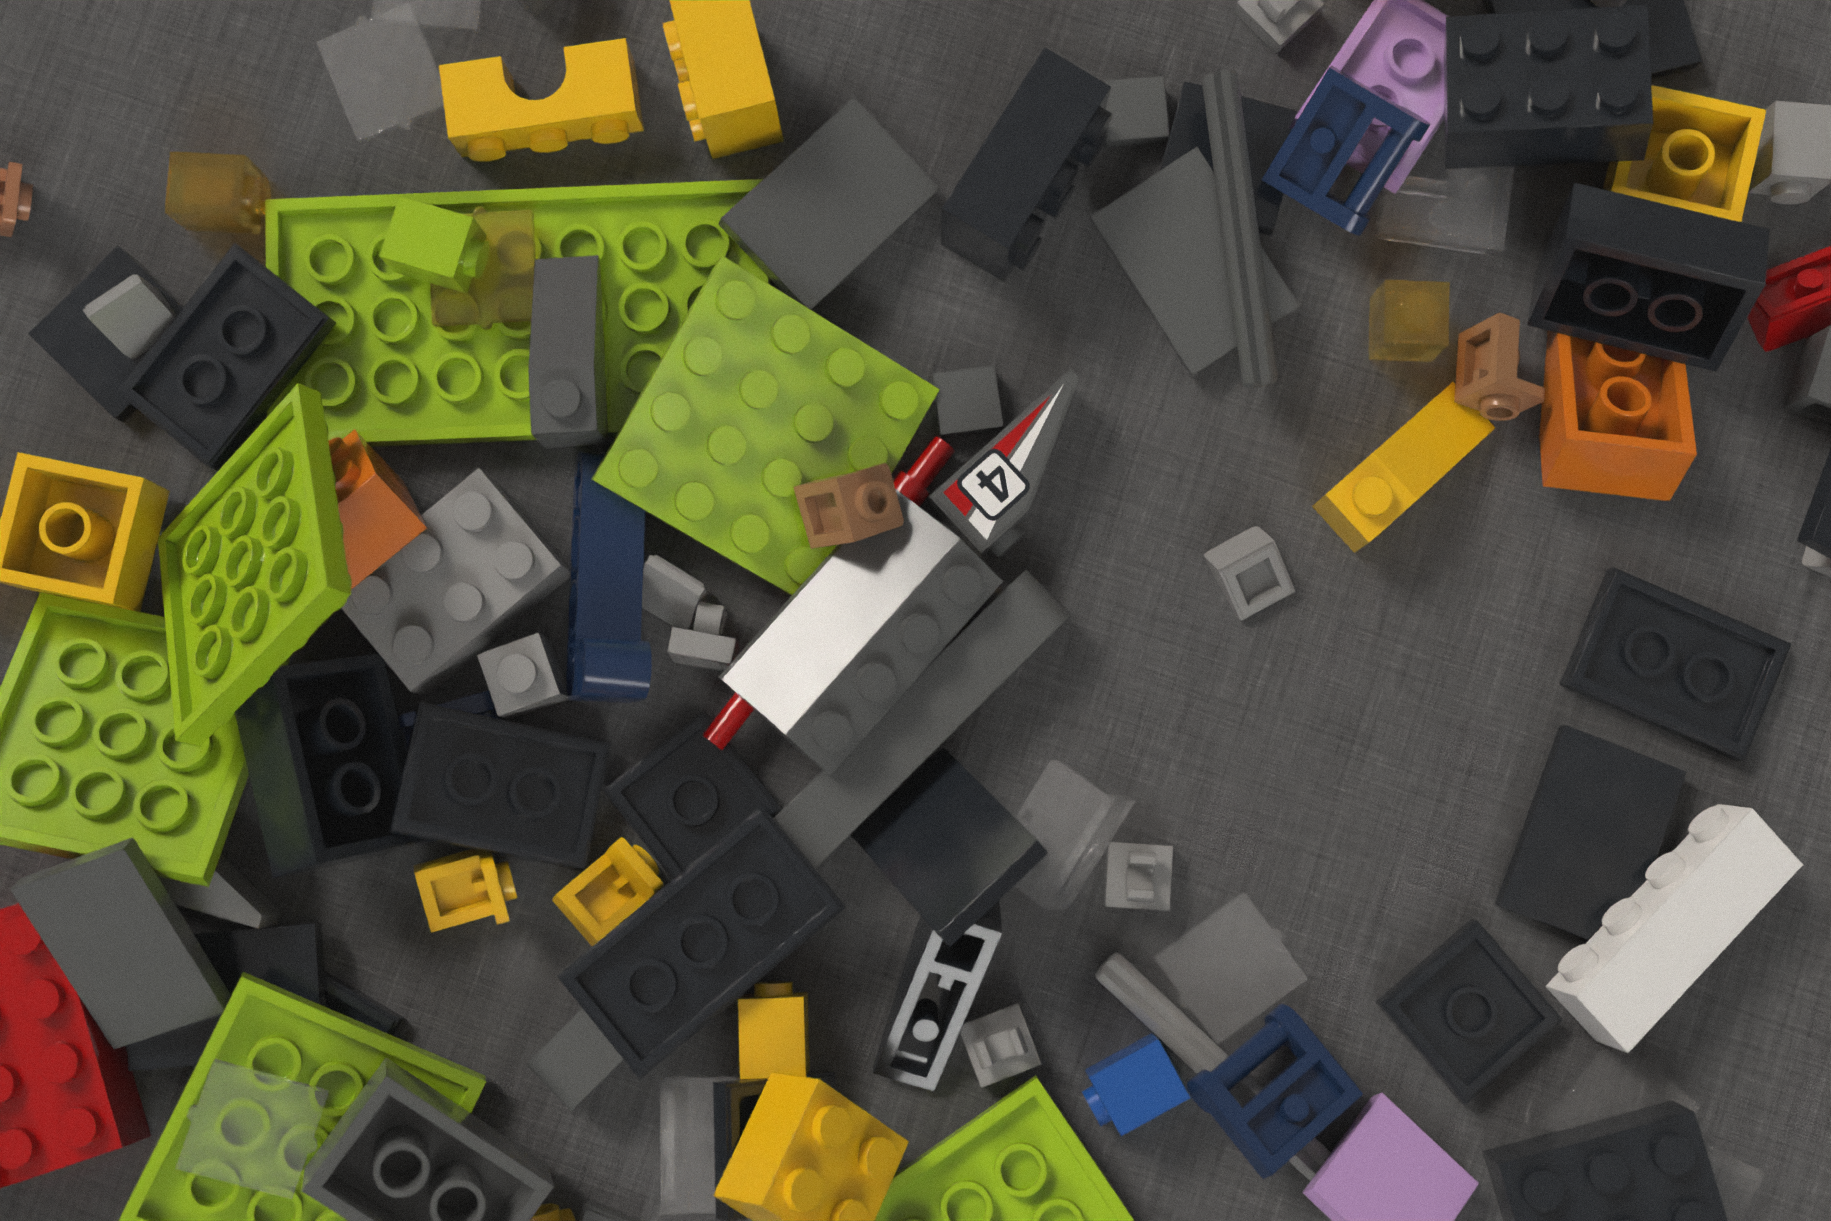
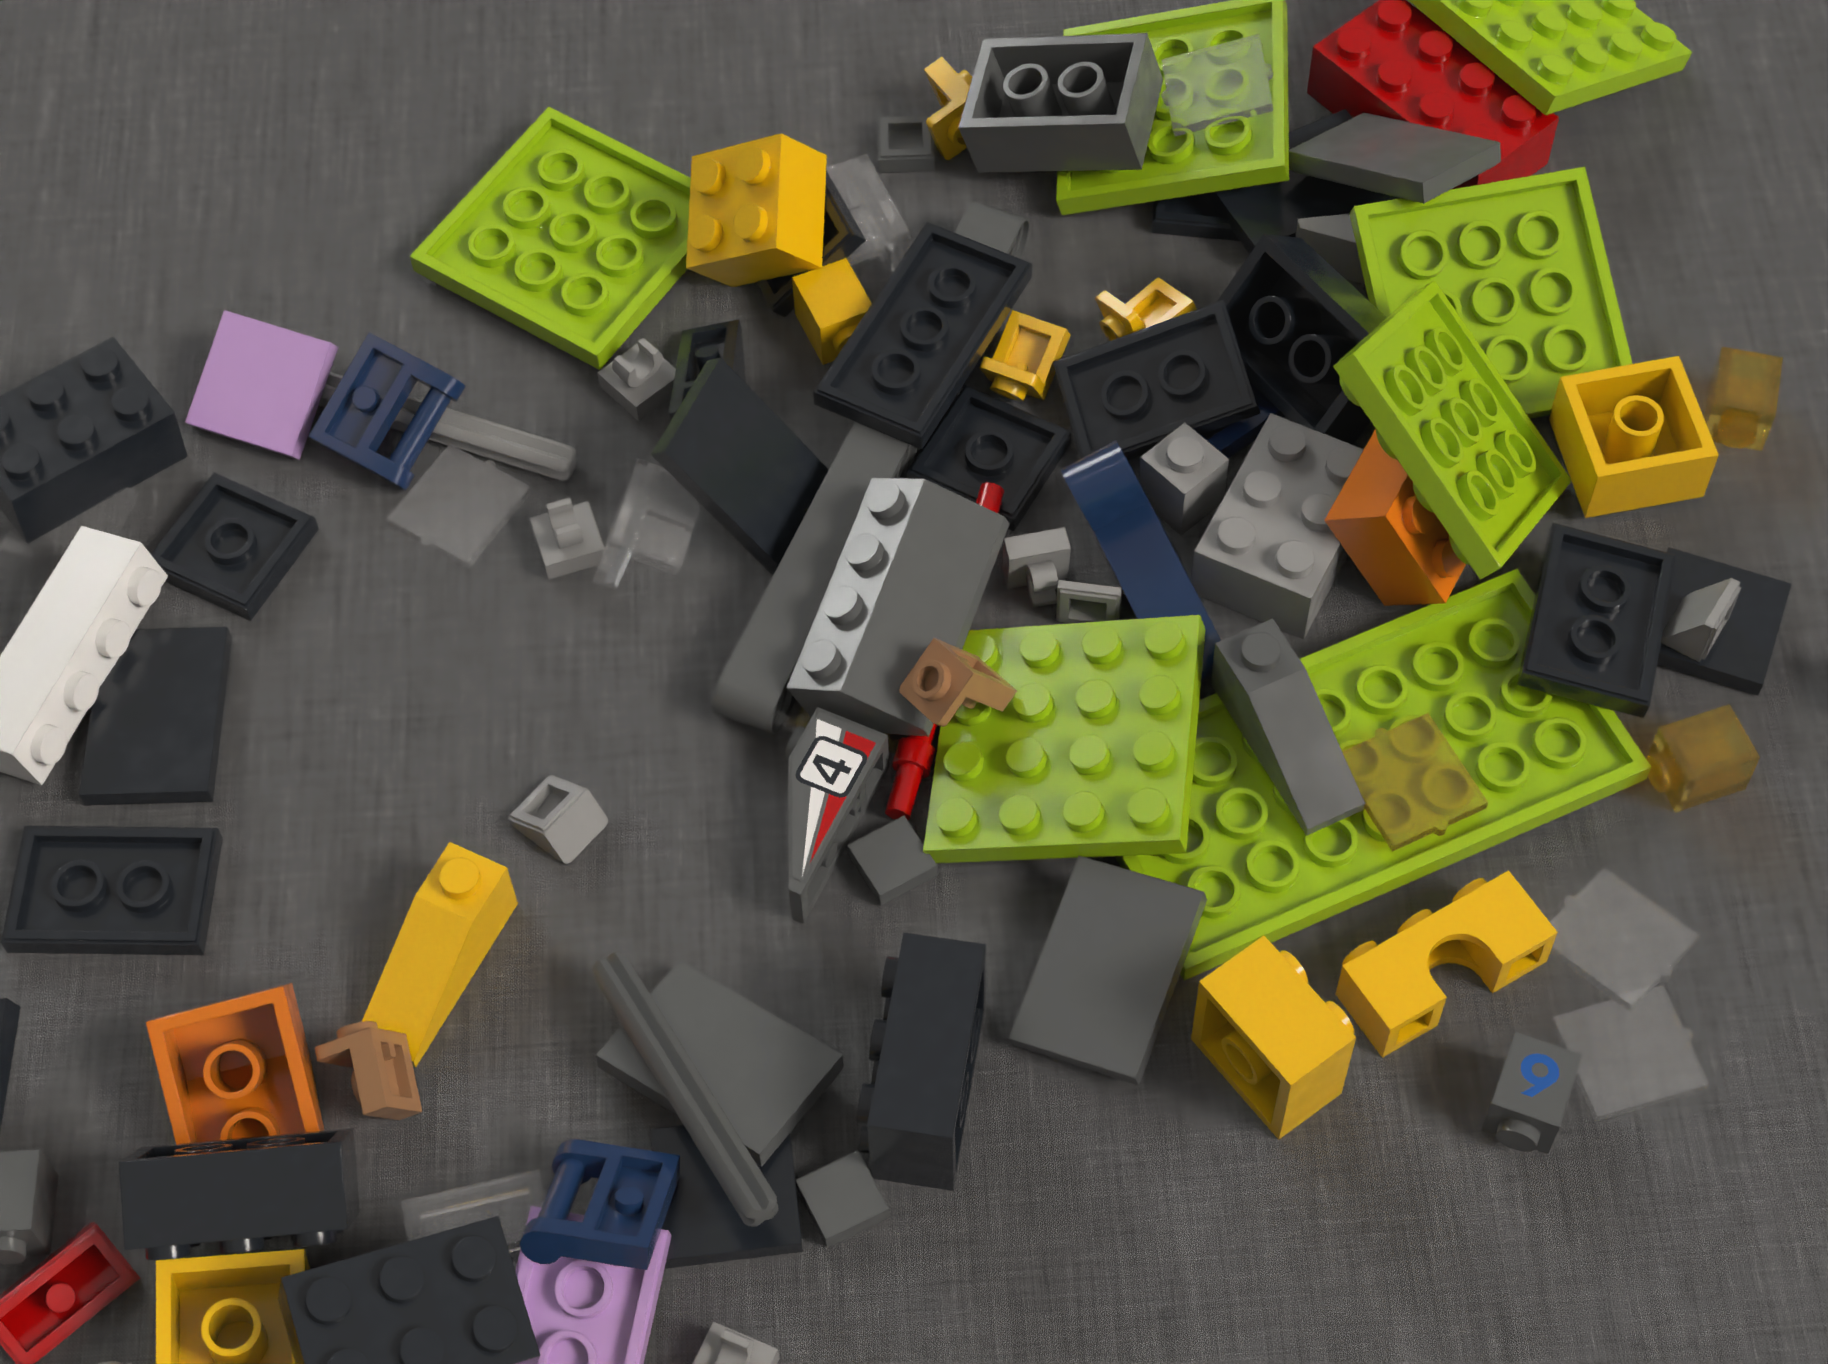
camera: 155 degrees right, 25 degrees down
(435, 245) = (1458, 758): lime brick -> none
(1134, 1085) = (510, 381): blue brick -> none
(1409, 320) = (477, 1083): clear yellow brick -> none

